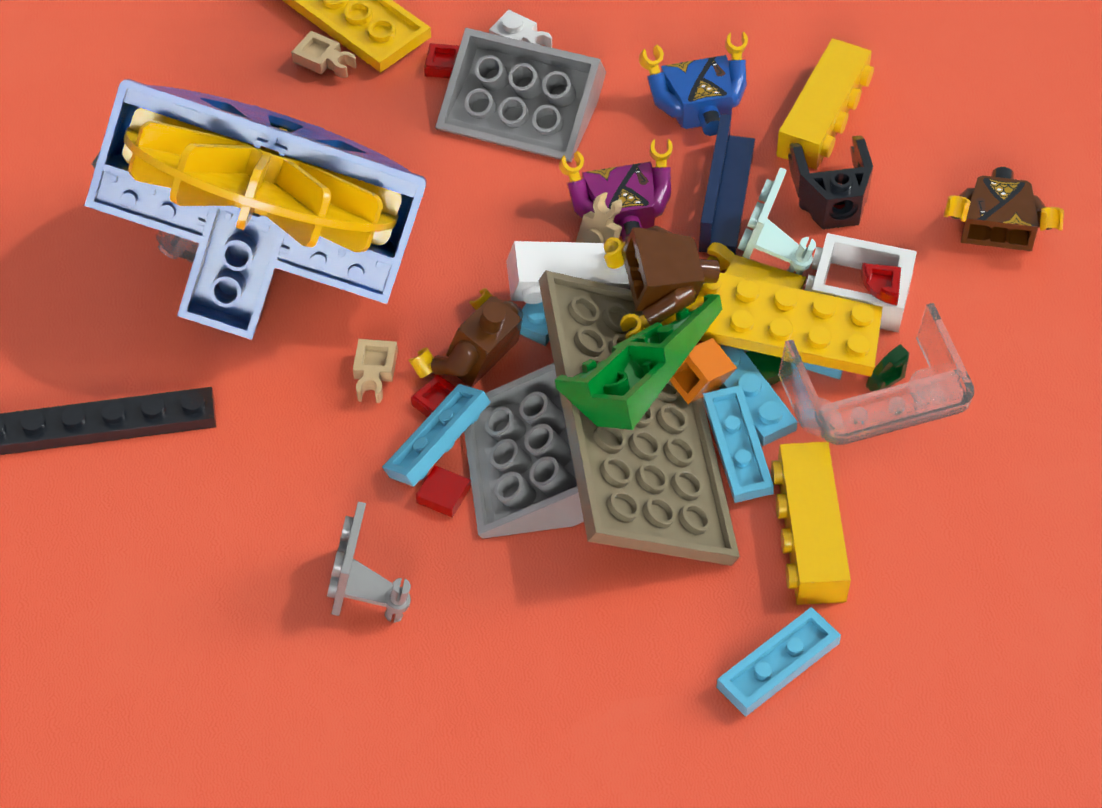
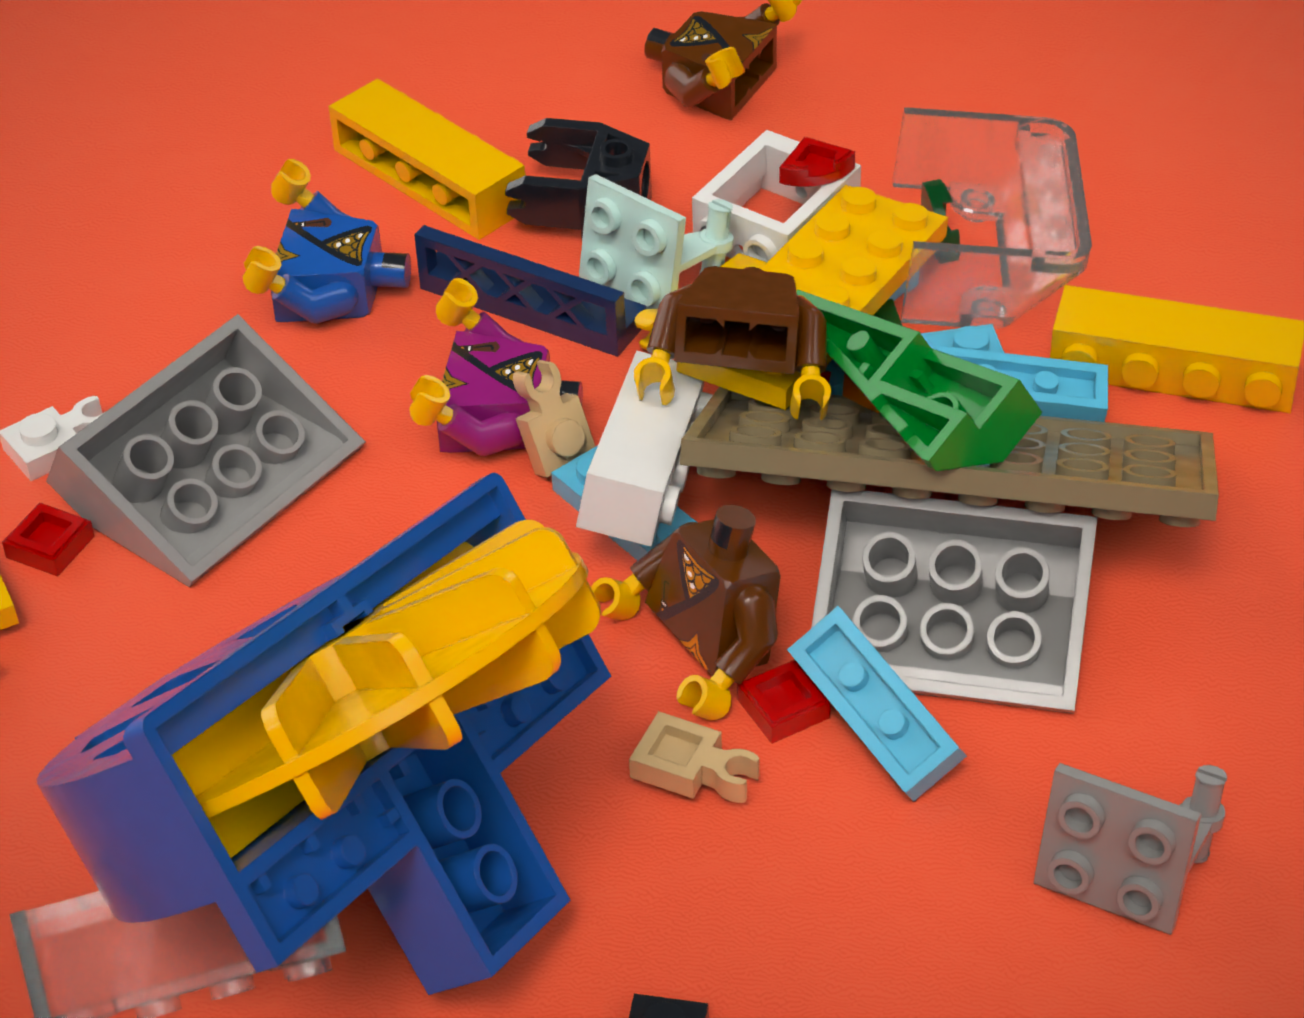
camera: 70 degrees left, 10 degrees down
(443, 491) = (981, 730): red tile -> none

